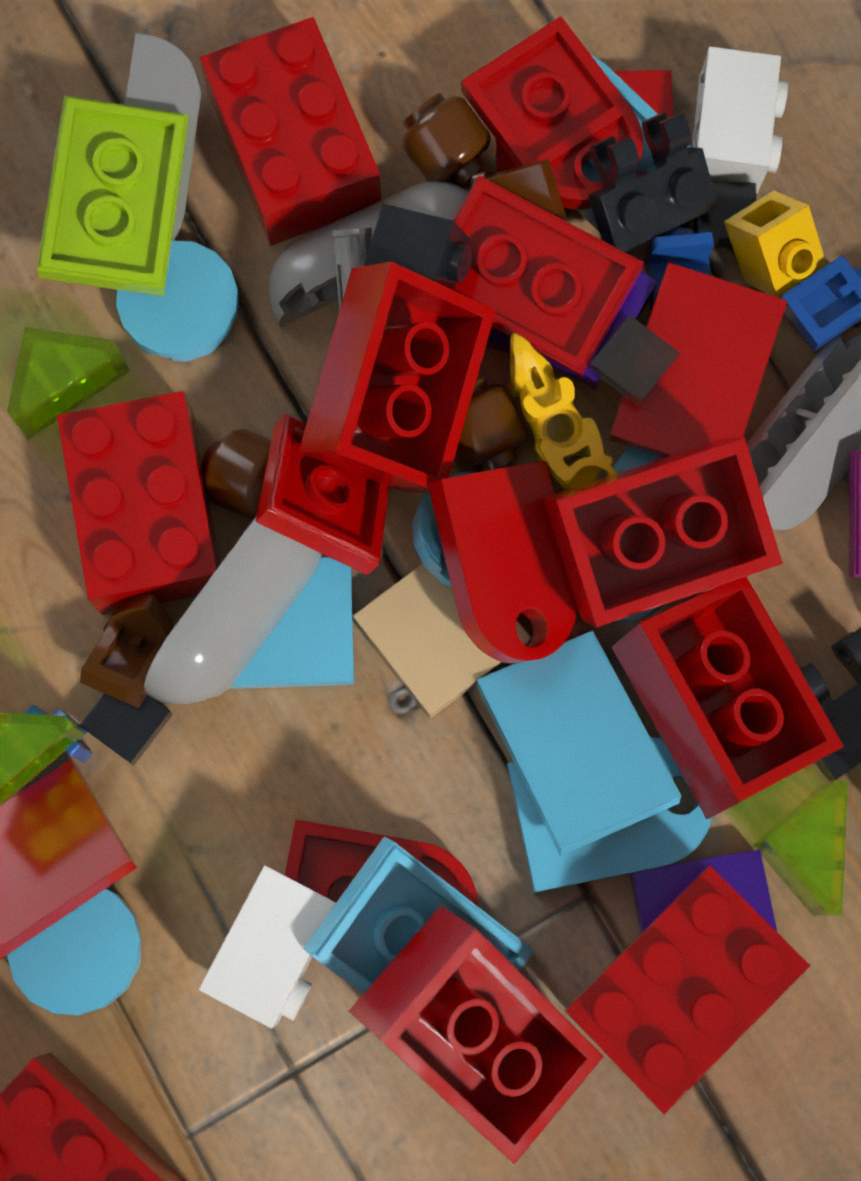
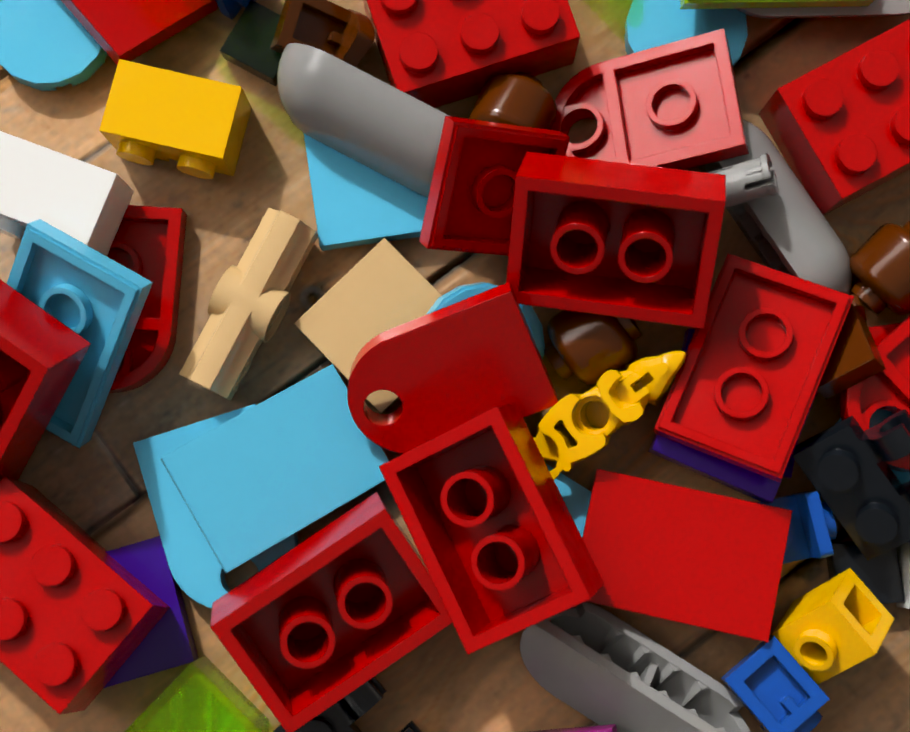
camera: 85 degrees right, 5 degrees up
(201, 812) = (175, 118): none -> yellow piece
(262, 332) = (658, 106): none -> tile
(405, 757) = (249, 303): none -> tan piece
(421, 244) = (756, 242): black brick -> none
(634, 360) = (676, 483): clear smoke tile -> none

